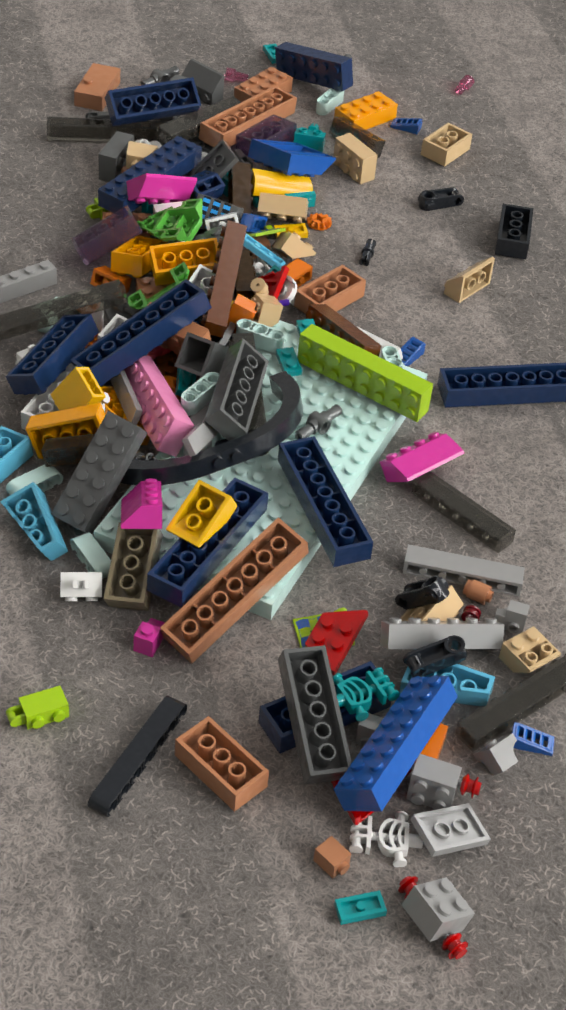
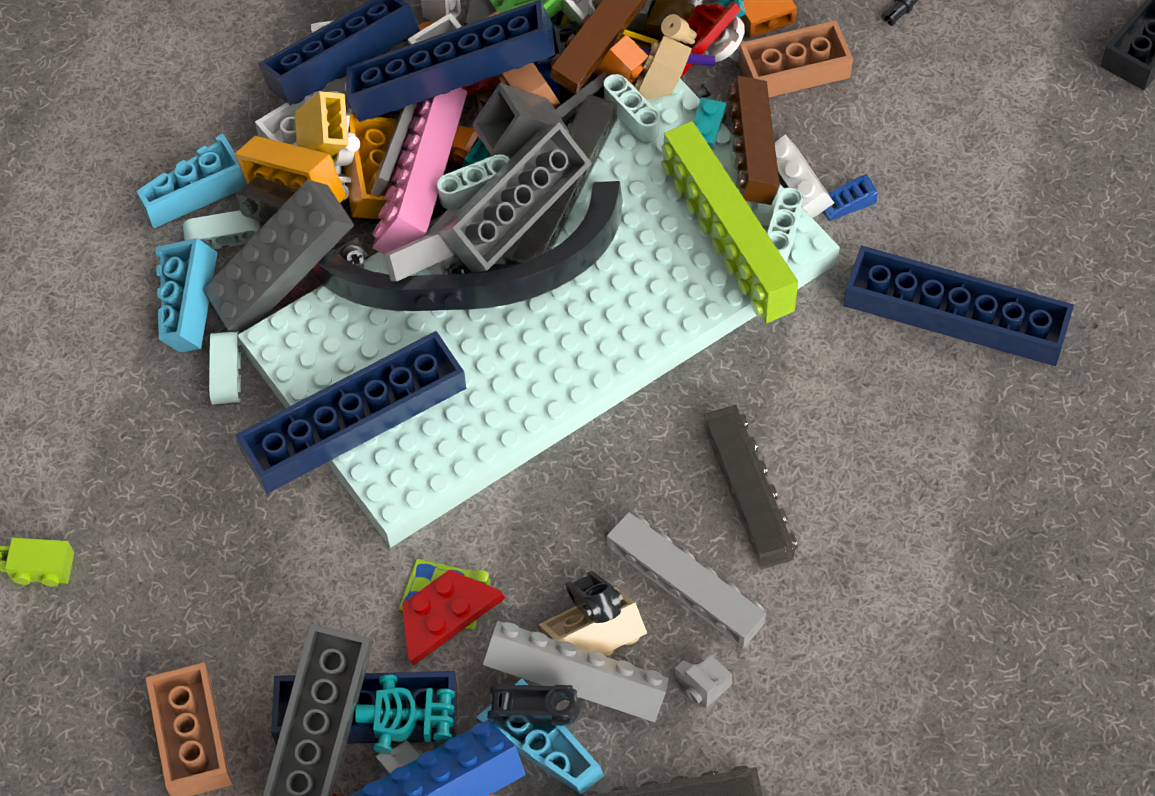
camera: 35 degrees right, 15 degrees up
(81, 585) = (182, 406): white brick -> none
(132, 558) = (252, 393): dark tan brick -> none
(136, 755) = (105, 672): black beam -> none
(143, 506) = (296, 333): dark pink slope -> none
(148, 637) = (223, 511): dark pink arch -> none
(202, 514) = (348, 376): yellow slope -> none
(234, 590) = (342, 496): nougat brick -> none
(288, 361) = (647, 163): teal plate -> none
(319, 422) = (620, 278): dark grey pin -> none
(325, 502) = (539, 409): dark blue brick -> none
(420, 457) = (739, 381): dark pink slope -> none
(469, 280) = (1020, 104): tan slope -> none
(471, 609) = (651, 651): dark red bush -> none
(478, 591) = (684, 620): nougat brick -> none
(527, 651) = (684, 743): tan slope -> none

